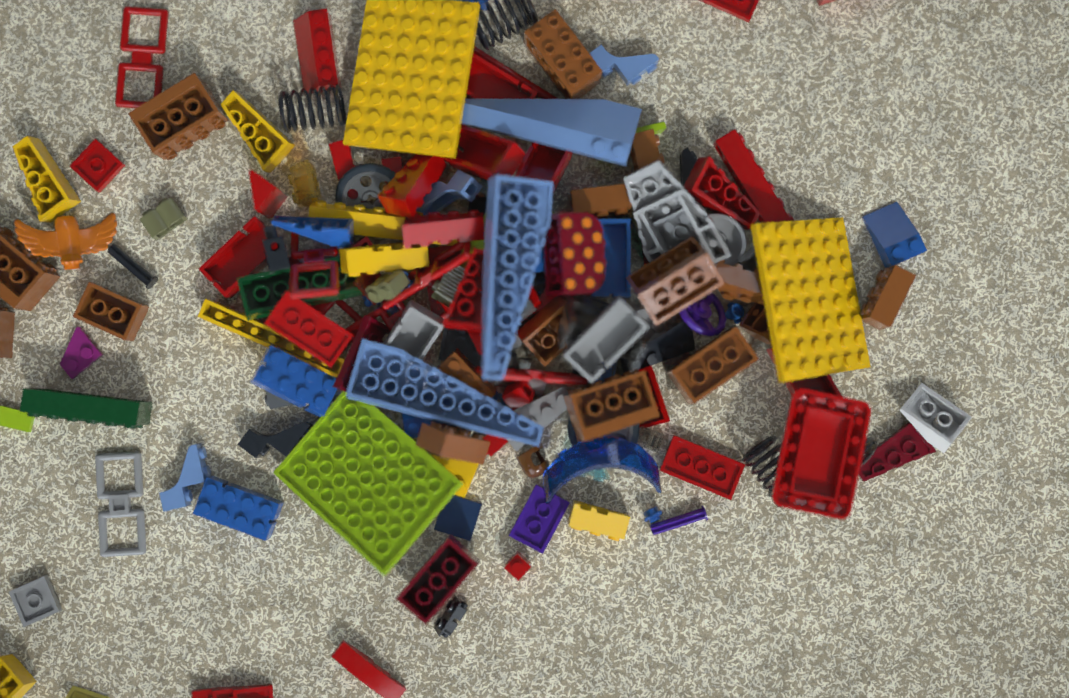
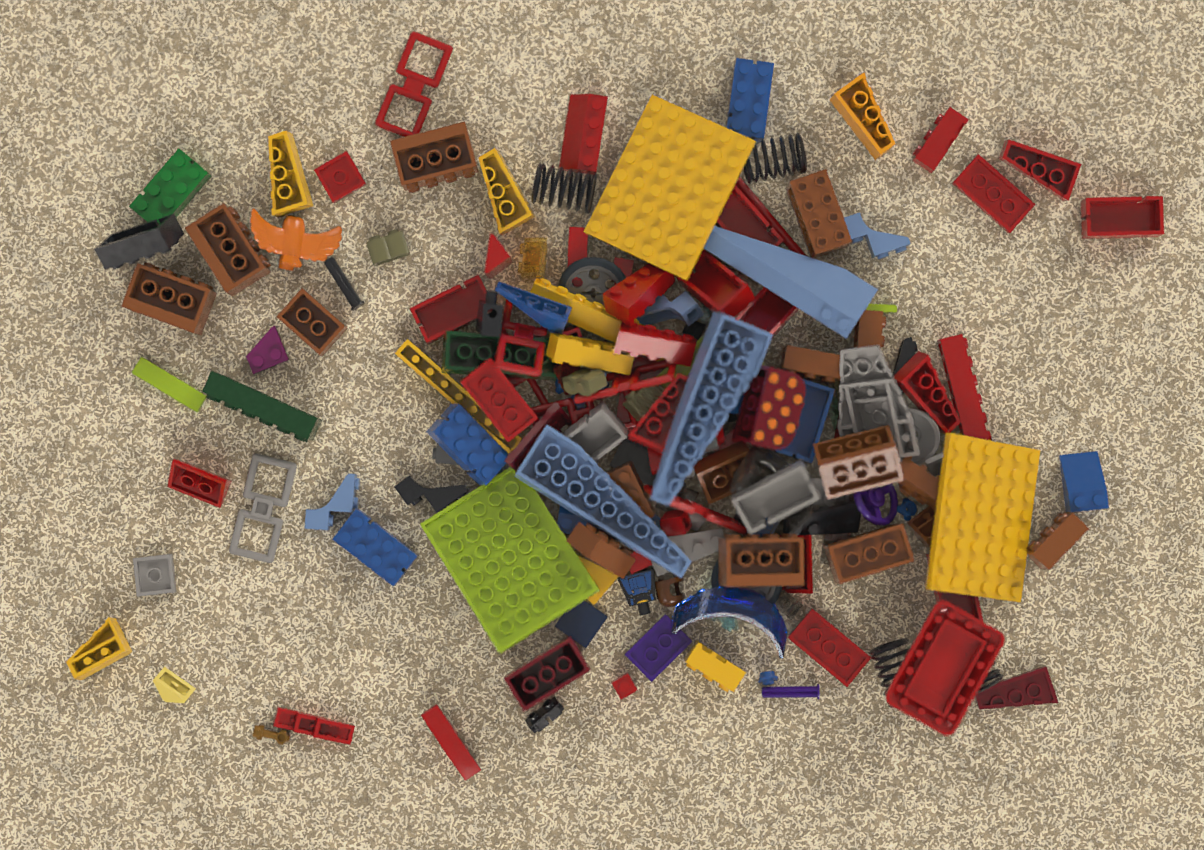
camera: 15 degrees right, 0 degrees up
(49, 498) = (198, 483): none -> red slope
(503, 469) = (639, 589): none -> torso
(934, 417) = (1066, 669): white slope -> none

